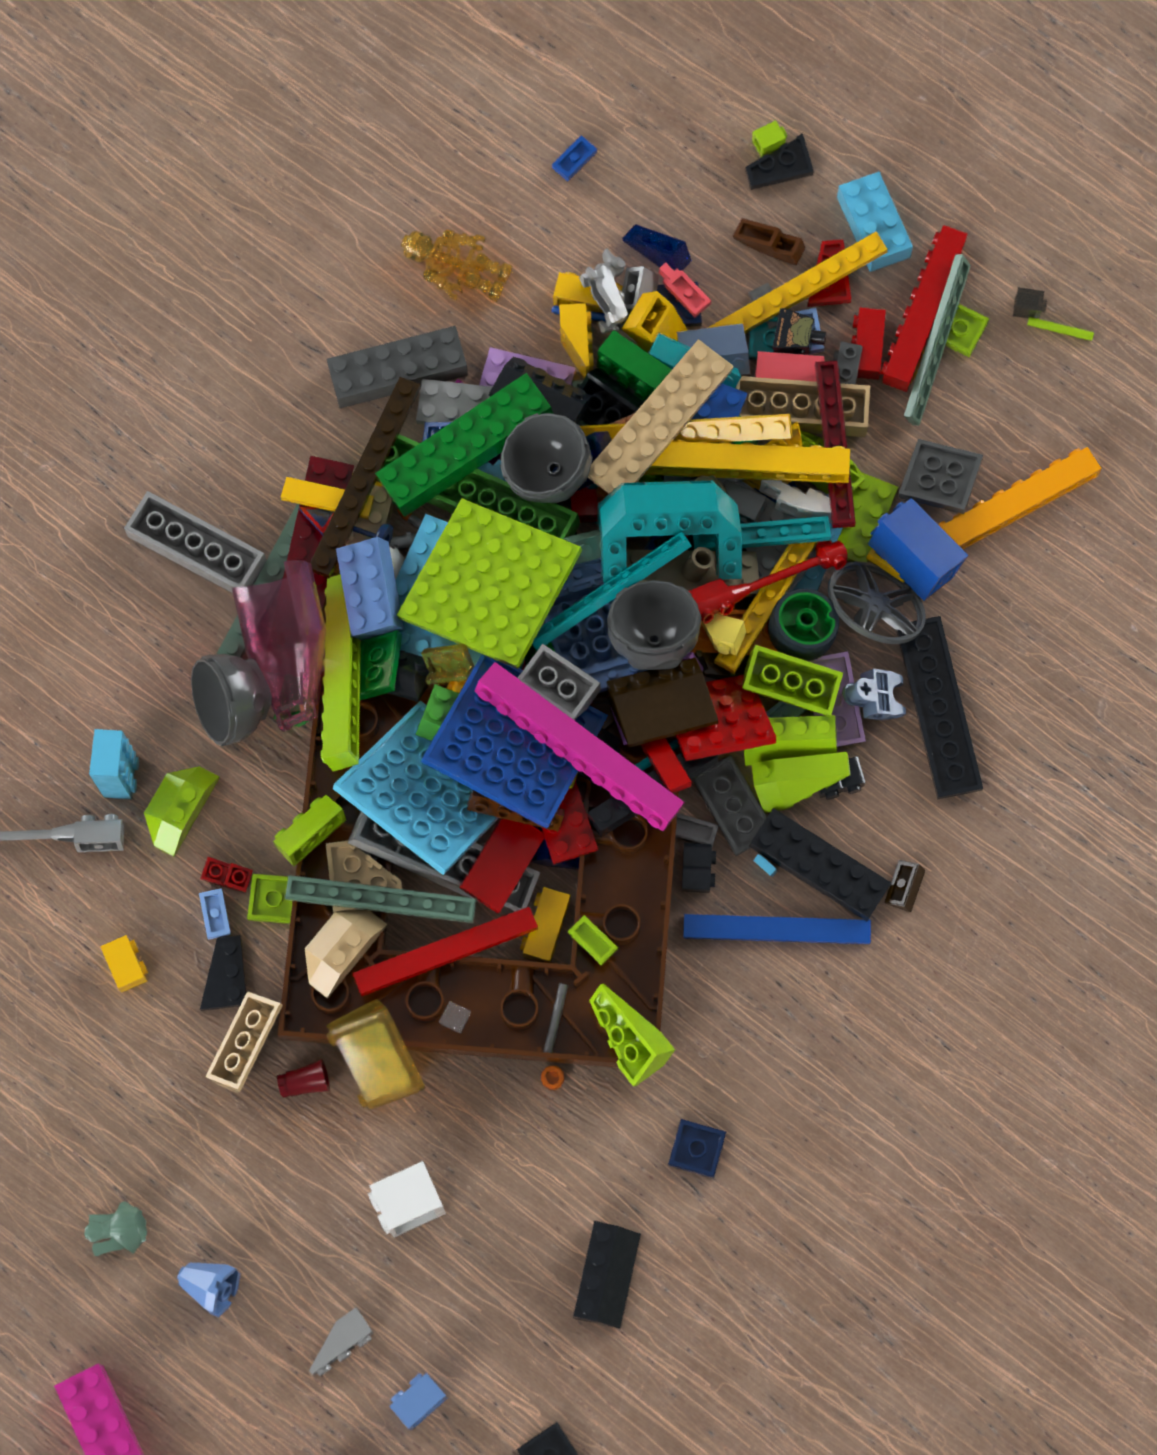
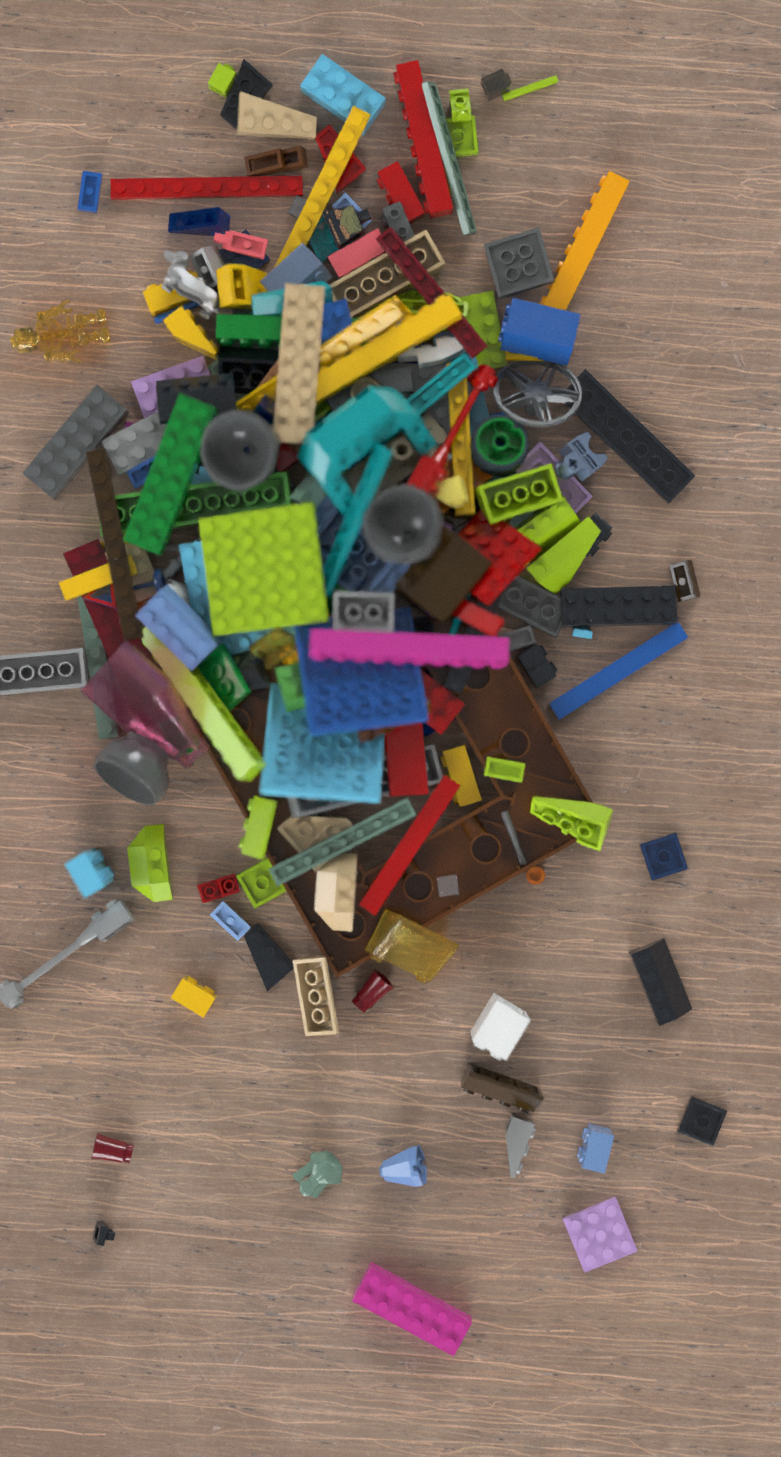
camera: 35 degrees left, 15 degrees up
(363, 1269) = (502, 1088): none -> dark brown slope
(687, 223) = (206, 187): none -> red plate
(791, 201) = (273, 120): none -> tan wedge
(981, 299) = (460, 104): none -> lime brick

